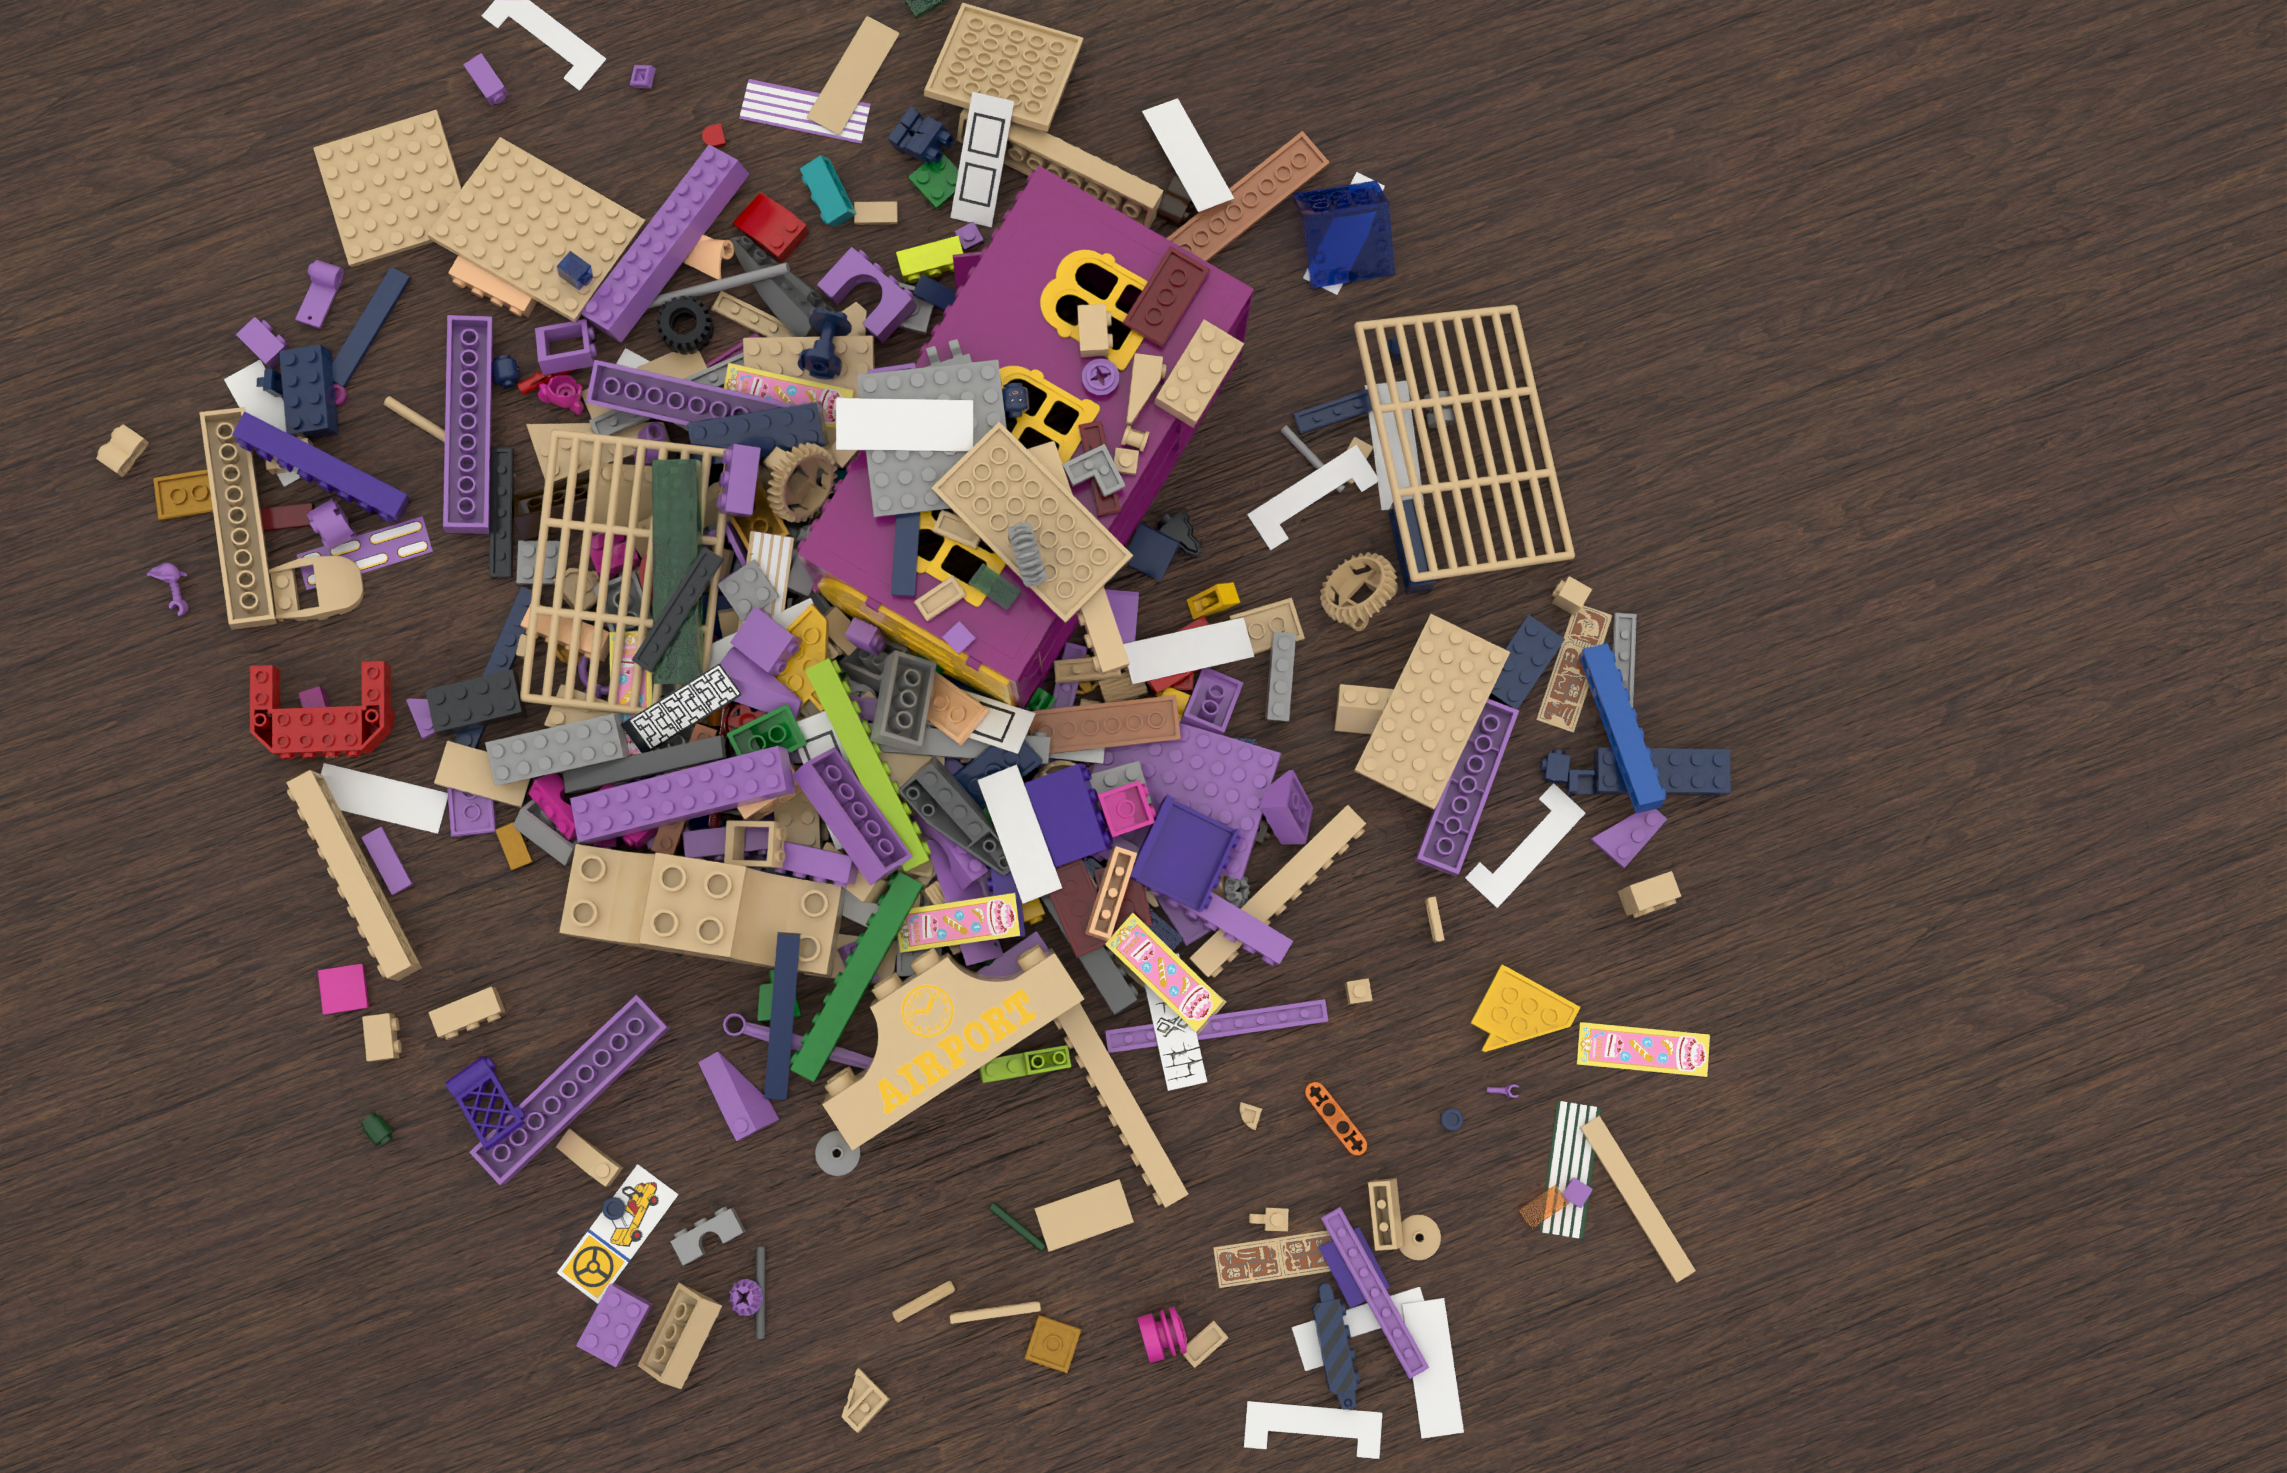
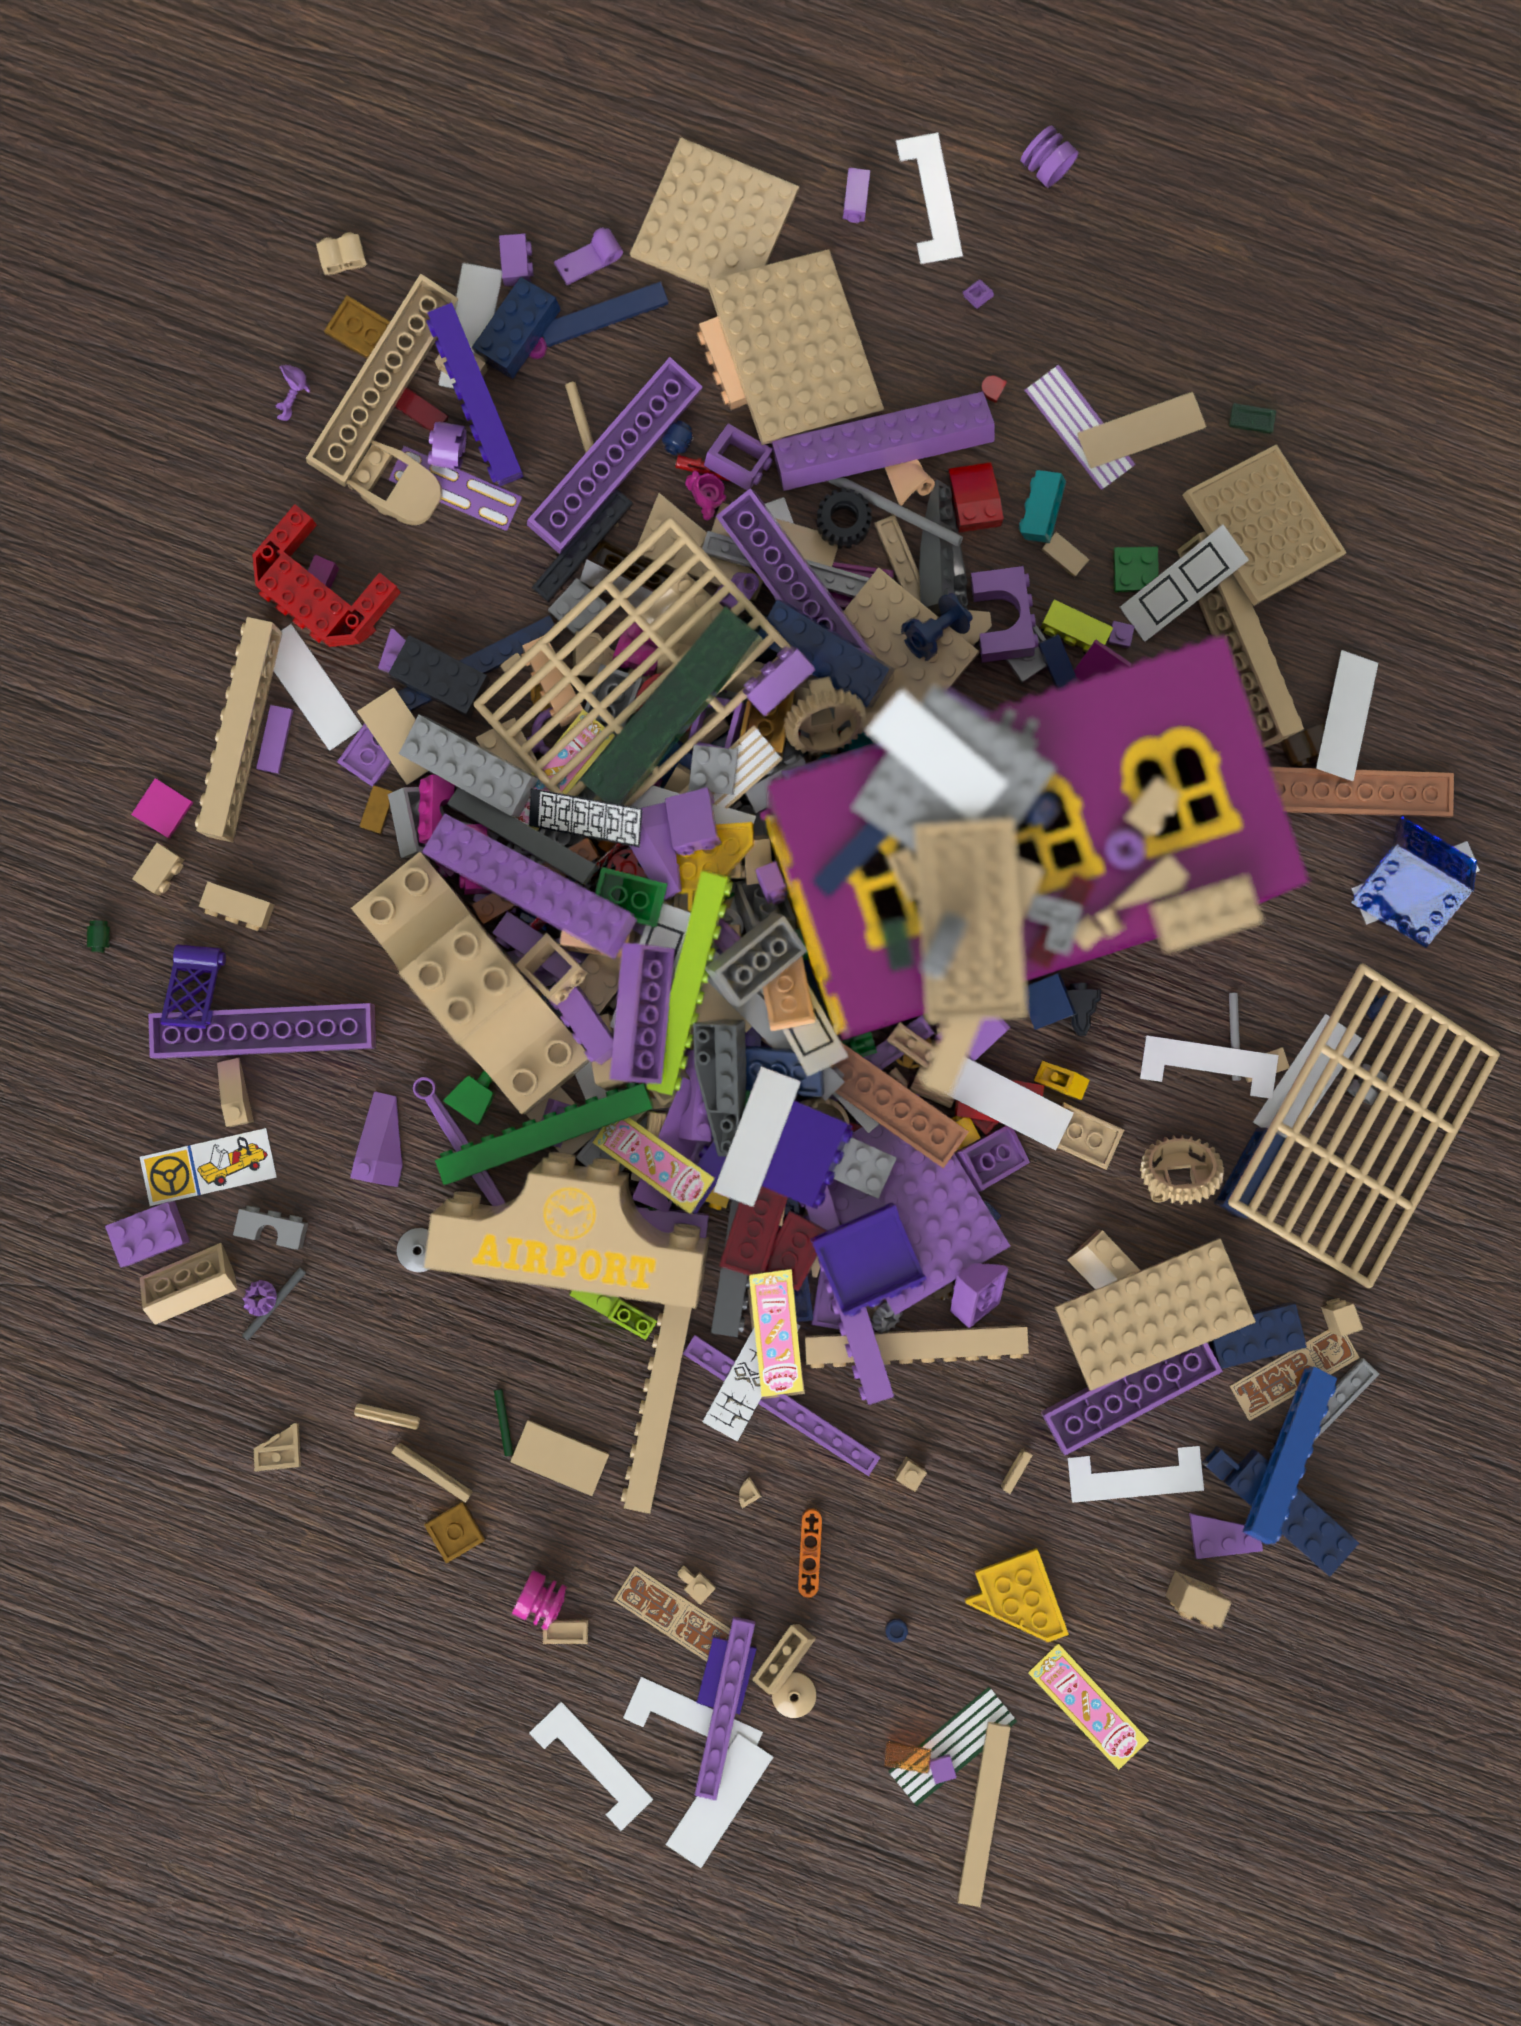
camera: 45 degrees right, 5 degrees up
(271, 382) = (494, 295): dark blue tile -> none
(575, 270) = (795, 404): clear blue brick -> none
(614, 1208) = (220, 1146): dark blue tile -> none
(677, 609) = (646, 739): black tile -> none
(782, 1015) = (463, 1115): dark blue tile -> none
(785, 388) = (878, 638): sticker -> none
(926, 139) = (1156, 529): dark blue hips -> none
(940, 598) = (847, 916): tan tile -> none
(959, 637) = (835, 960): medium lavender tile -> none
(1110, 893) = (786, 1242): light nougat brick -> none
(1126, 808) = (855, 1189): dark pink plate -> none
(1166, 297) = (1233, 829): dark red tile -> none
(1280, 676) = (1061, 1184): light grey brick -> none
(1333, 412) = (1284, 1014): dark blue tile -> none
(1334, 1346) = (660, 1720): dark blue hinge -> none
(1504, 1090) = (957, 1645): medium lavender hand -> none
(1555, 767) = (1212, 1436): dark blue brick -> none

